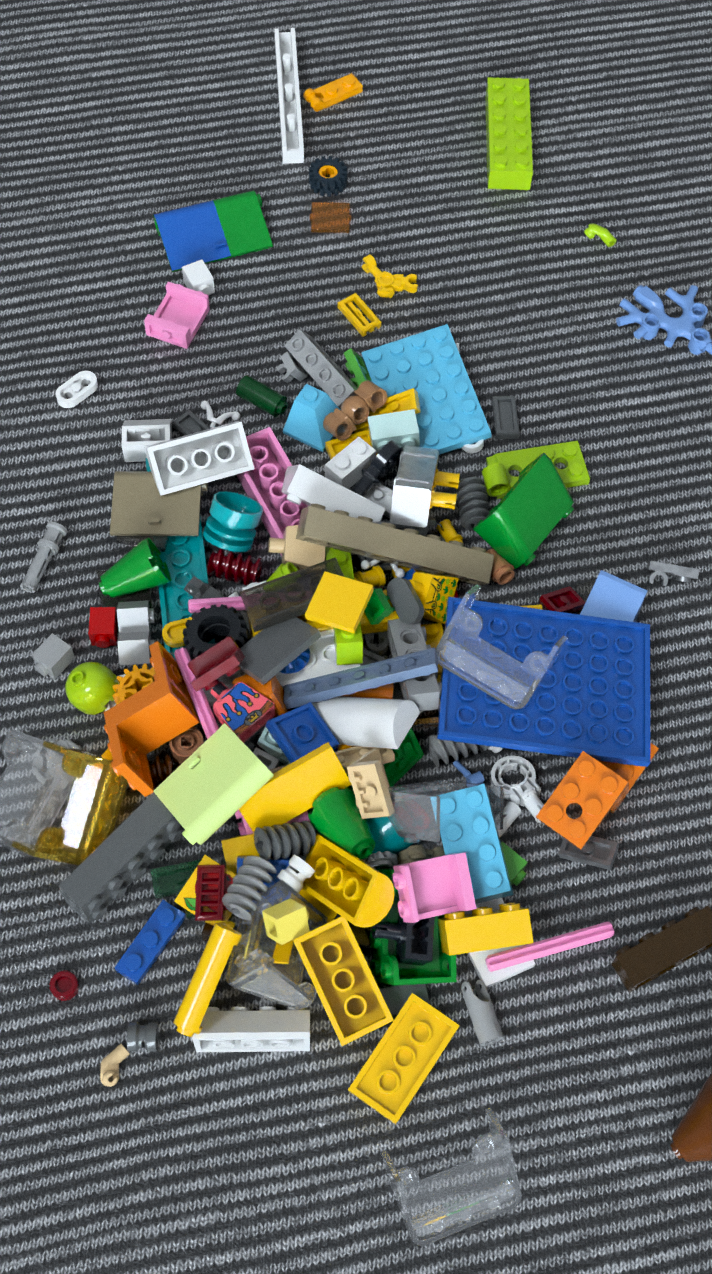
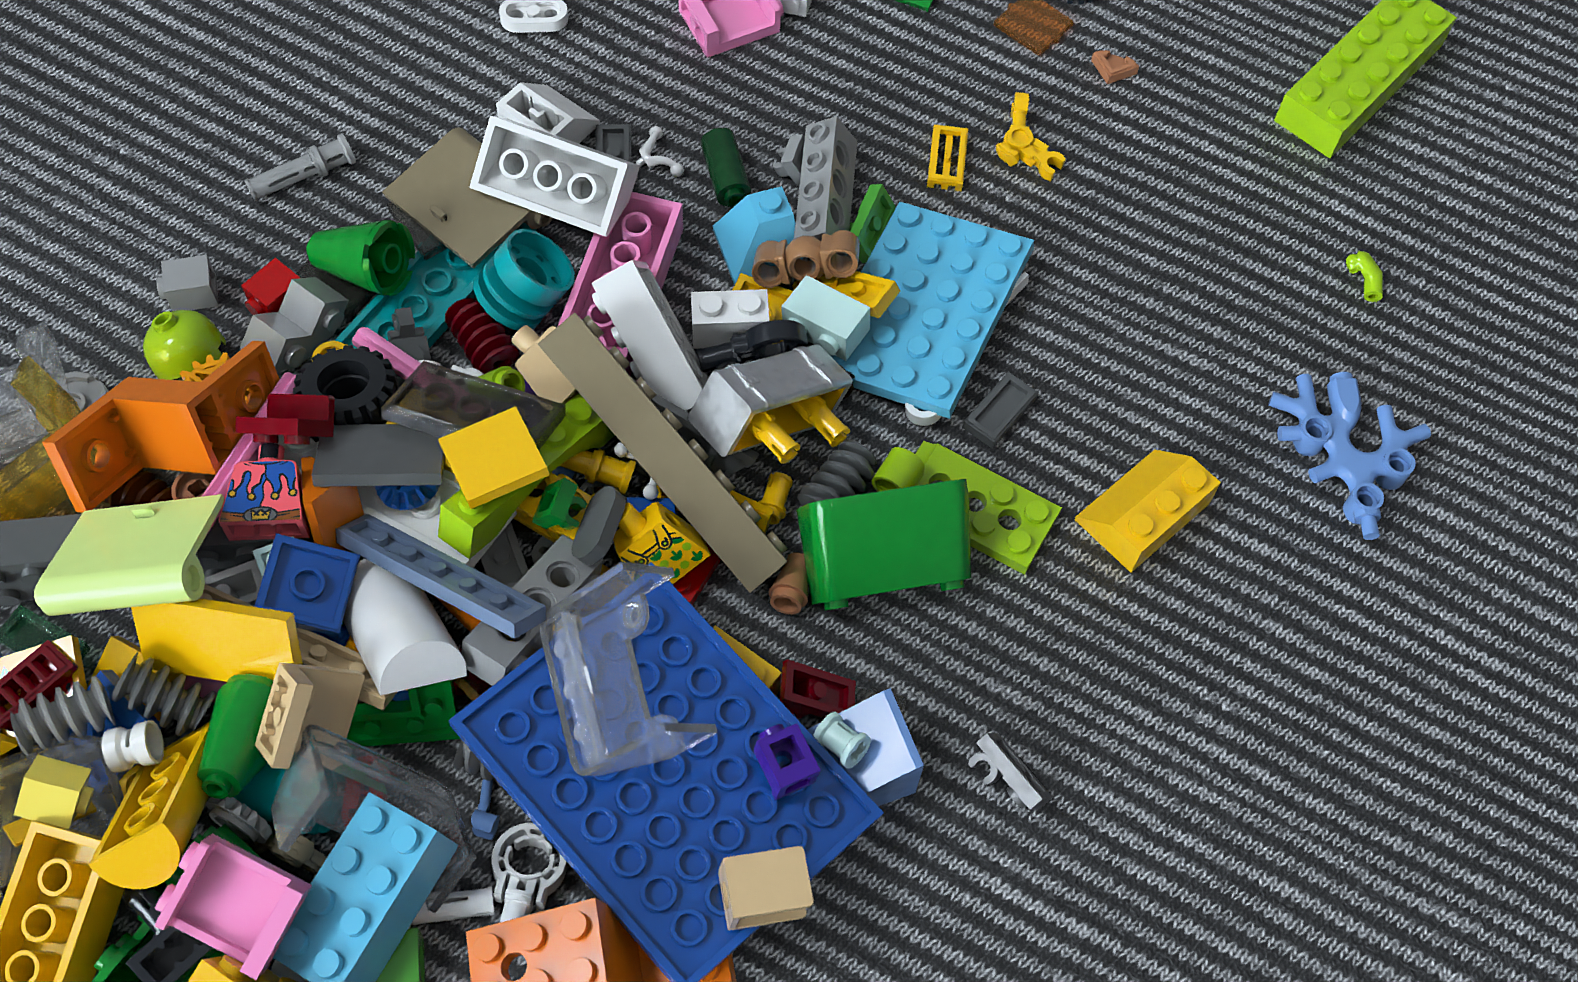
camera: 40 degrees right, 0 degrees up
(390, 213) = (1114, 67): none -> nougat tile
(595, 631) = (789, 743): none -> dark purple brick
(603, 608) = (842, 740): none -> light aqua bush
(612, 410) = (1148, 506): none -> yellow slope
(642, 690) = (765, 887): none -> tan piece

